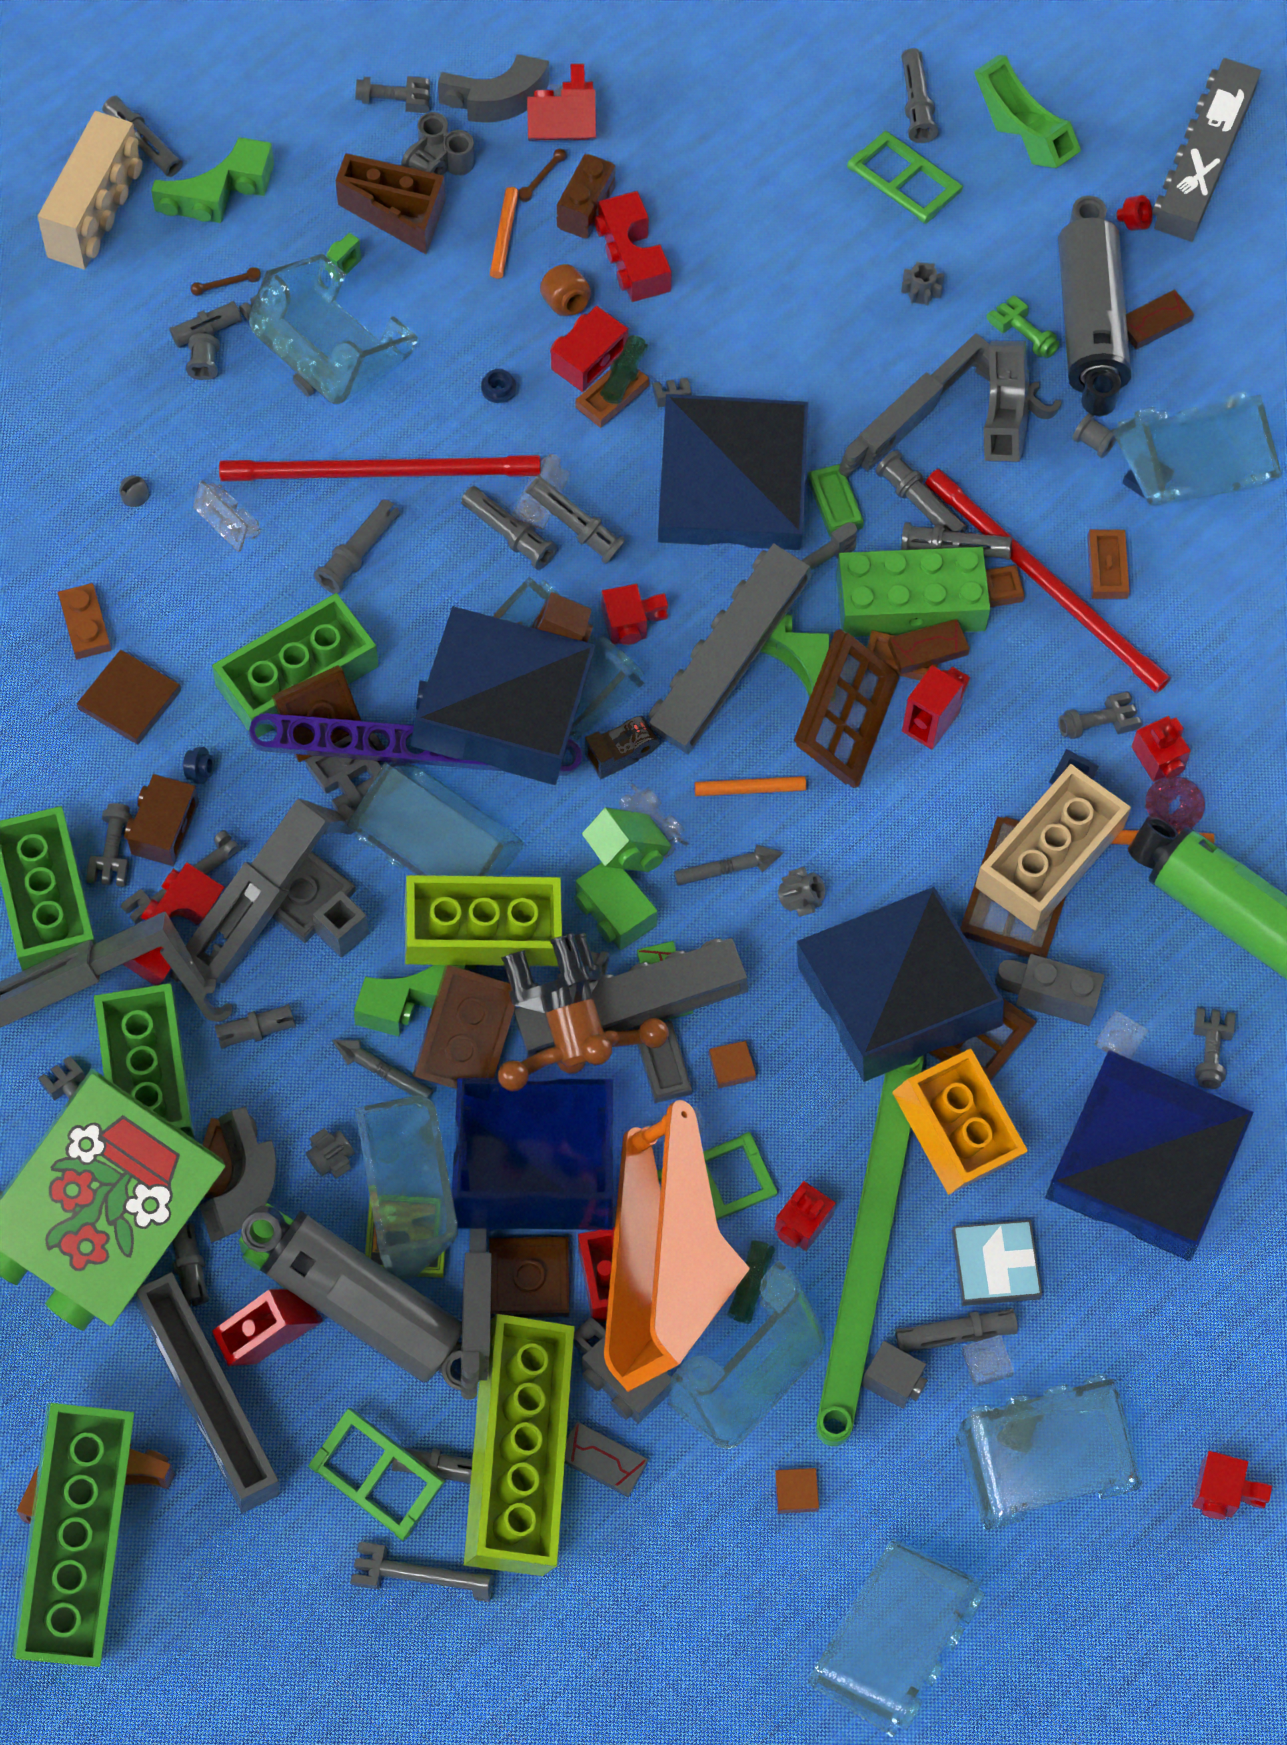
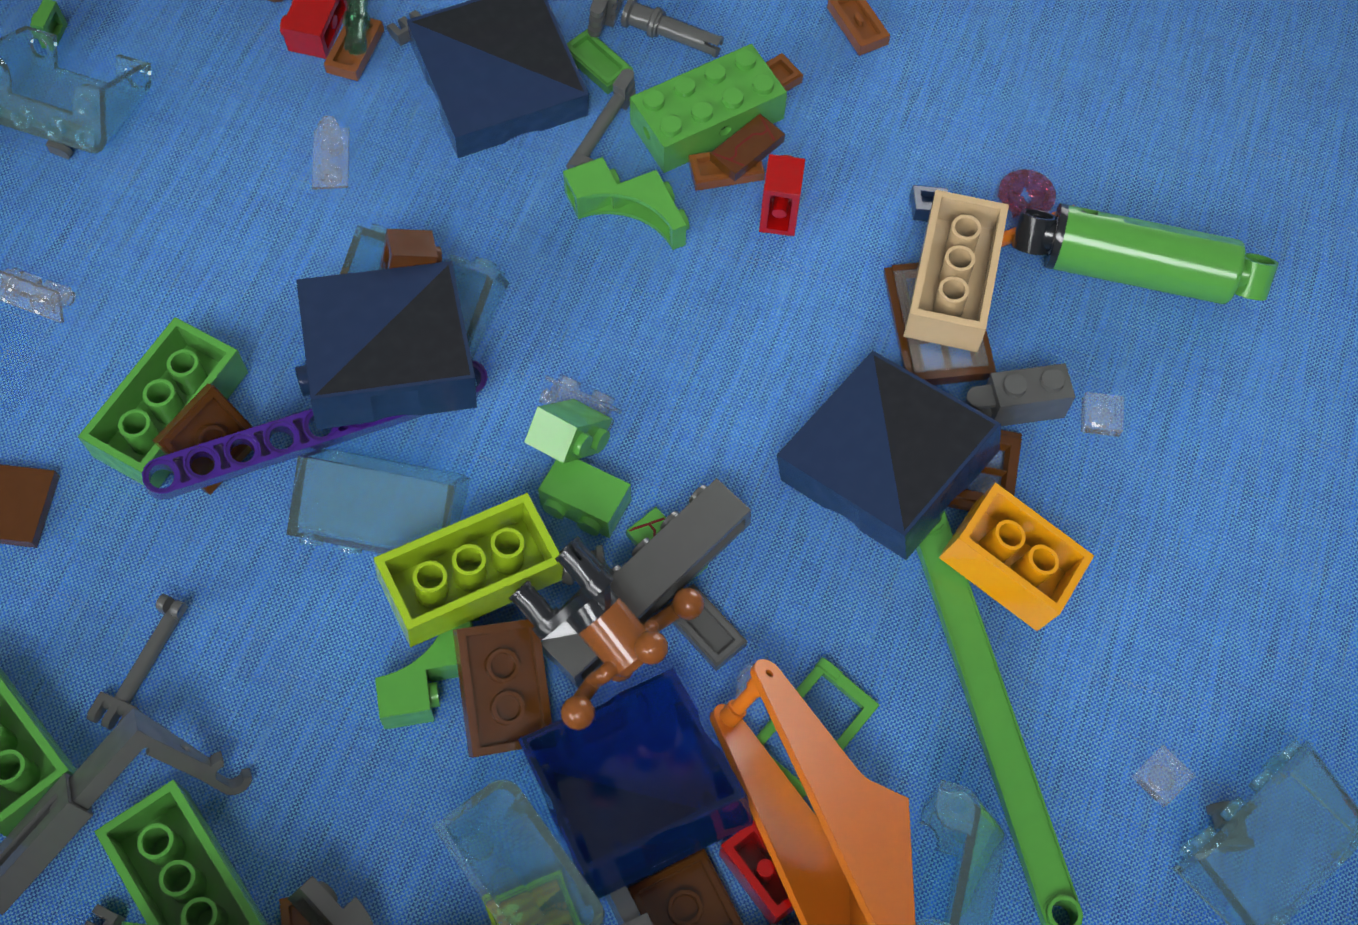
camera: 25 degrees left, 0 degrees up
(116, 816) = (44, 629): dark grey hinge -> none
(162, 819) = (92, 611): reddish brown brick -> none
(188, 896) = (151, 677): red arch -> none
(198, 765) = (107, 541): dark blue plate -> none
(251, 470) = (42, 243): red piece -> none
(255, 1026) = (282, 780): dark grey pin -> none
(261, 888) = (226, 637): dark grey hinge -> none
(309, 890) = (270, 620): dark grey tile -> none
(330, 1153) = (422, 878): dark grey gear -> none
(338, 773) = (254, 487): dark grey plate -> none
(340, 923) = (325, 635): dark grey brick -> none
(348, 557) = (172, 283): dark grey pin -> none
(352, 1052) = (396, 759): dark grey piece -> none
(496, 378) = (246, 80): dark blue plate -> none
(519, 535) = (328, 200): dark grey pin -> none
(588, 529) = (390, 167): dark grey pin -> none
(620, 746) = (515, 349): dark brown leg -> none
(628, 614) = (463, 228): red brick -> none
(730, 648) = (575, 218): dark grey brick -> none
(732, 1064) = (770, 599): dark orange tile -> none
(749, 1288) = (899, 780): clear green pin -> none
(750, 786) = (651, 335): orange bar -> none
(760, 858) = (696, 394): dark grey piece -> none
(801, 891) = (752, 408): dark grey gear -> none
(804, 1217) = (919, 717): red brick -> none
(846, 708) = (705, 228): reddish brown piece -> none
(895, 1375) = (1090, 834): dark grey brick -> none
(934, 539) = (763, 40): dark grey pin -> none
(949, 1332) = (1129, 751): dark grey pin -> none
(996, 1263) = (1113, 675): tile -> none
(1072, 723) = (905, 162): dark grey hinge -> none
(1140, 665) = (929, 91): red piece -> none
(1149, 1155) = (1193, 510): tile -> none
(1161, 748) = (992, 150): red brick -> none
(1211, 1073) = (1175, 370): dark grey hinge -> none

